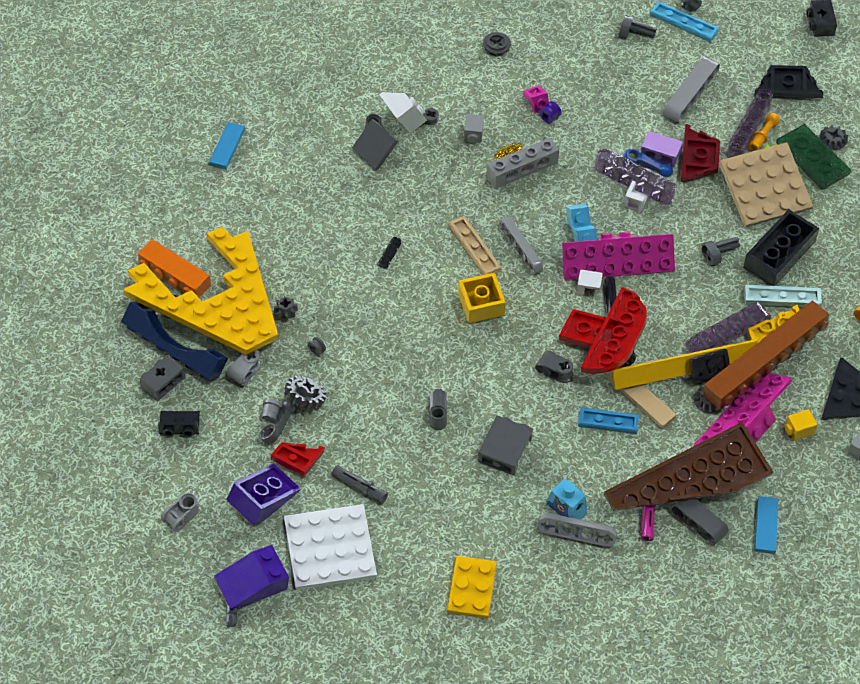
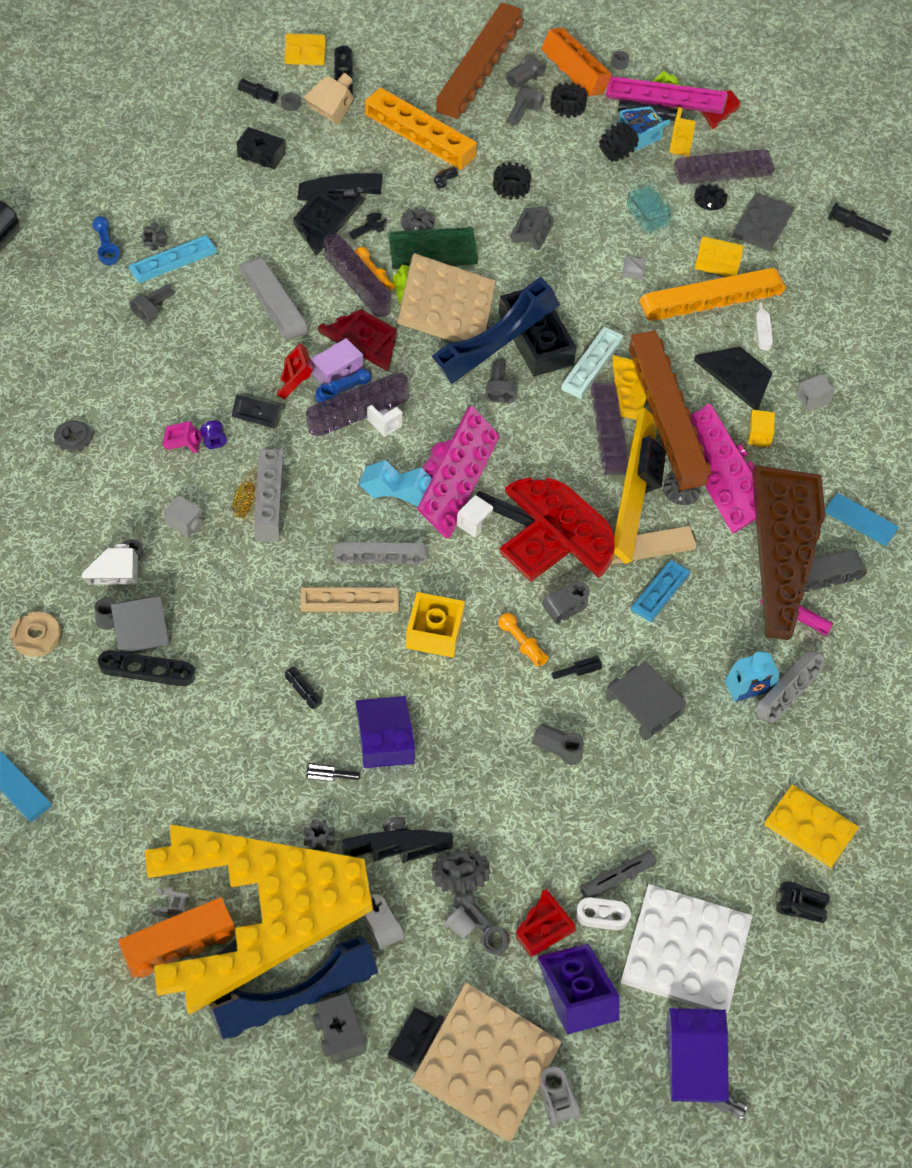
camera: 65 degrees left, 0 degrees up
(182, 461) = (486, 1062): none -> tan plate
(203, 255) = (174, 895): none -> light grey piece
(306, 354) = (406, 843): none -> black slope
(325, 488) = (603, 912): none -> white plate
(335, 293) = (328, 772): none -> axle
(338, 109) = (35, 646): none -> tan tile
(350, 166) = (147, 664): none -> black beam
(384, 309) = (385, 732): none -> dark purple slope
(403, 594) = (802, 902): none -> black piece
(505, 360) = (529, 646): none -> light orange pin
(509, 398) = (580, 667): none -> black axle
(591, 125) = (257, 409): none -> black panel
(637, 129) = (296, 369): none -> red wing
(717, 213) = (463, 356): none -> dark blue arch
(807, 113) = (370, 225): none -> black bar
(825, 79) = (346, 184): none -> black slope

